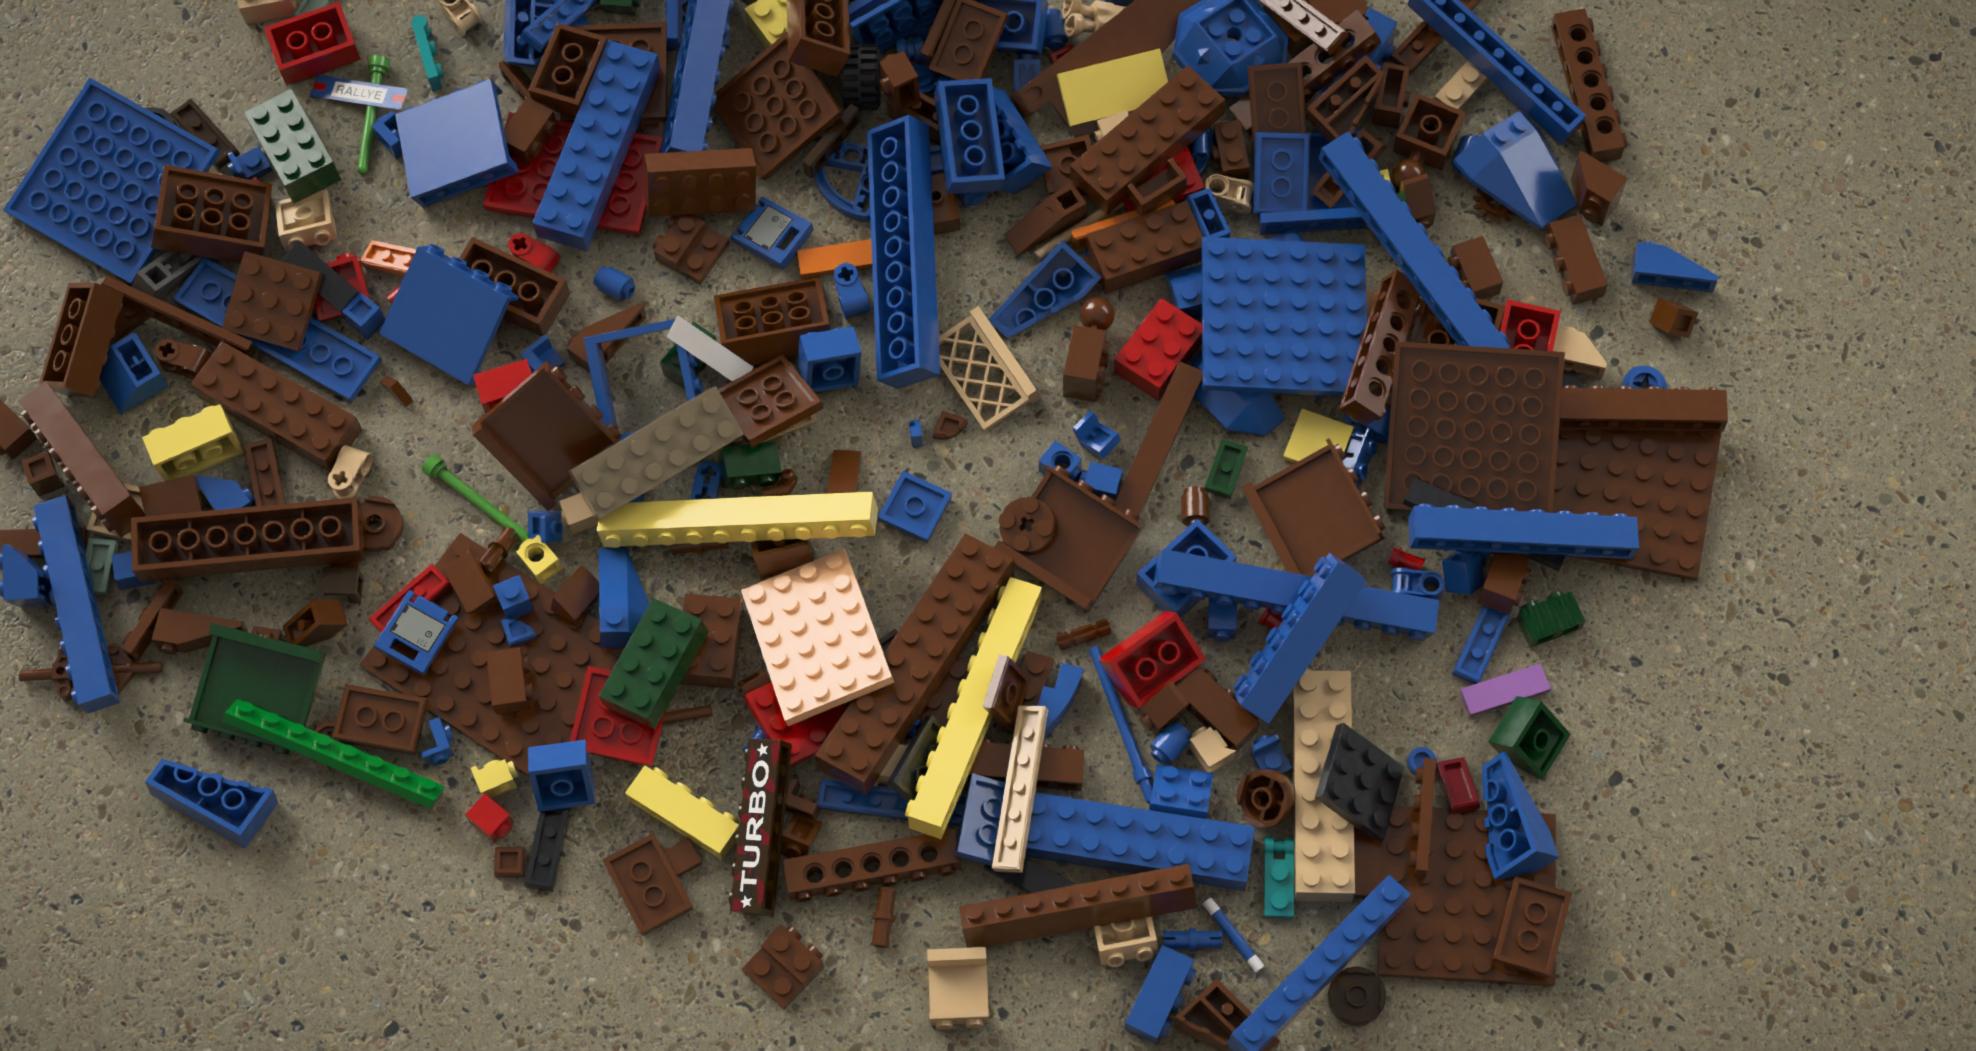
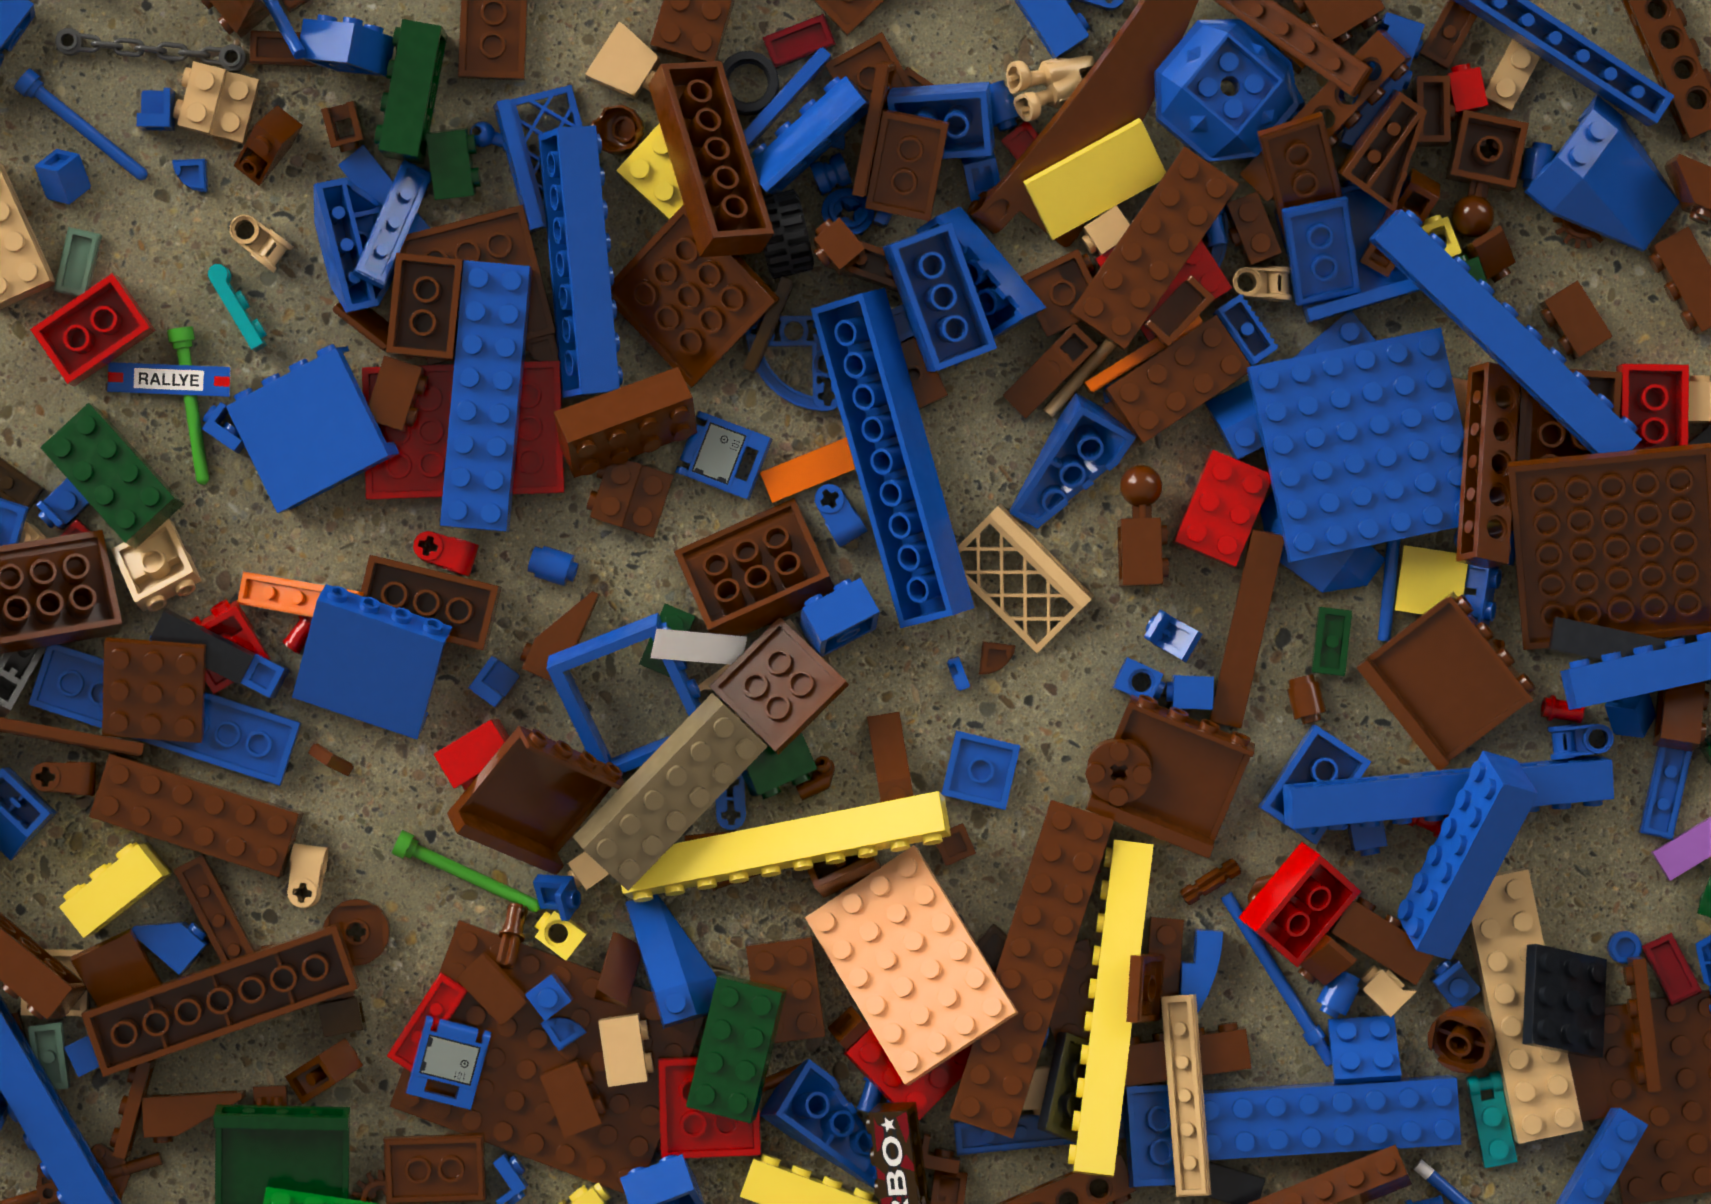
camera: 15 degrees left, 20 degrees up
(563, 653) = (624, 1049): none -> tan brick
(710, 750) = (820, 1118): none -> blue wedge
(878, 559) = (956, 846): none -> reddish brown plate
(1284, 435) = (1388, 590): none -> blue bar
(1422, 82) = (1467, 88): none -> red brick

